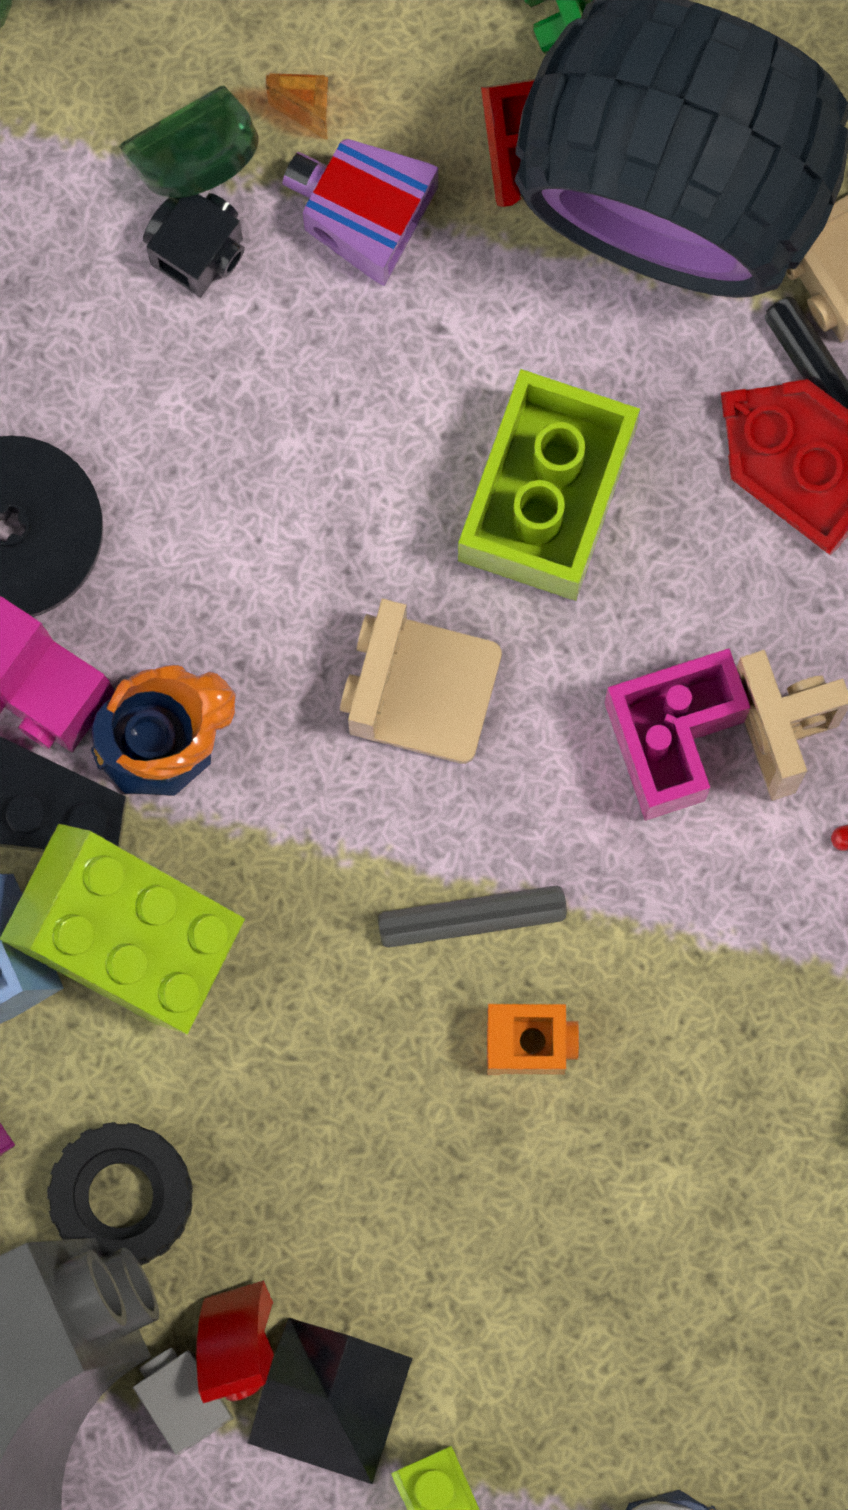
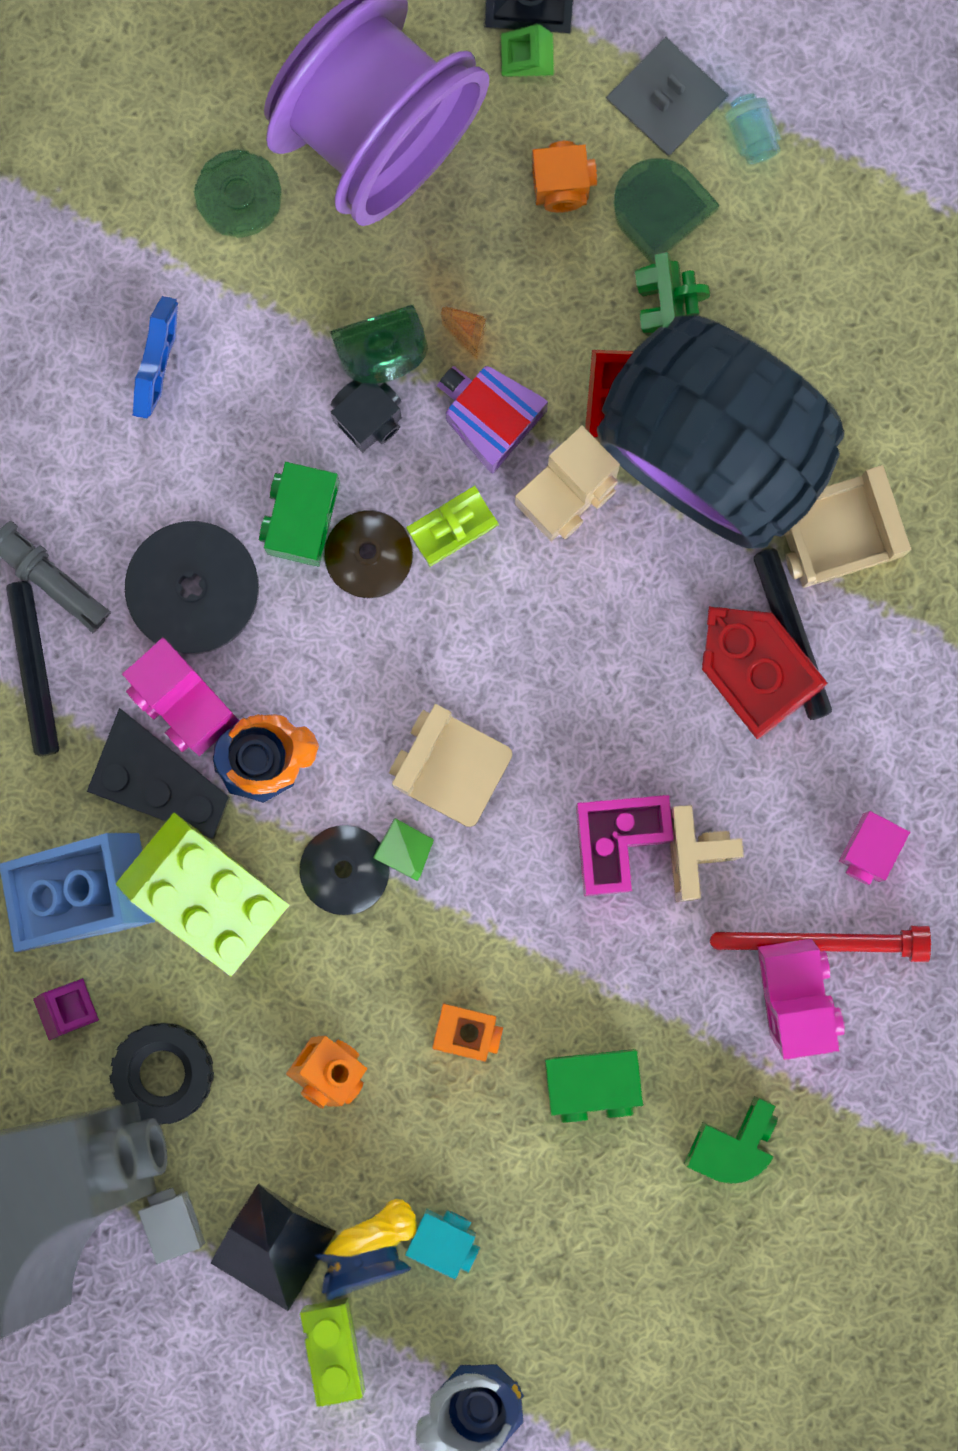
camera: 15 degrees right, 5 degrees up
(136, 394) = (300, 513): none -> green brick
(232, 1343) = (212, 1197): red slope -> none
(246, 458) = (368, 576): none -> dark brown dish
(313, 893) = (347, 894): none -> black dish
(346, 363) = (452, 526): none -> lime hips
(351, 1136) = (328, 1072): none -> orange brick
(384, 813) = (404, 849): none -> bright green slope
(463, 1367) = (368, 1251): none -> piece
(472, 916) = (448, 935): dark grey axle -> none
(500, 261) = (576, 477): none -> tan brick
(548, 484) = (571, 646): lime brick -> none
(567, 1335) = (444, 1243): none -> teal brick
(721, 1068) = (594, 1084): none -> green brick

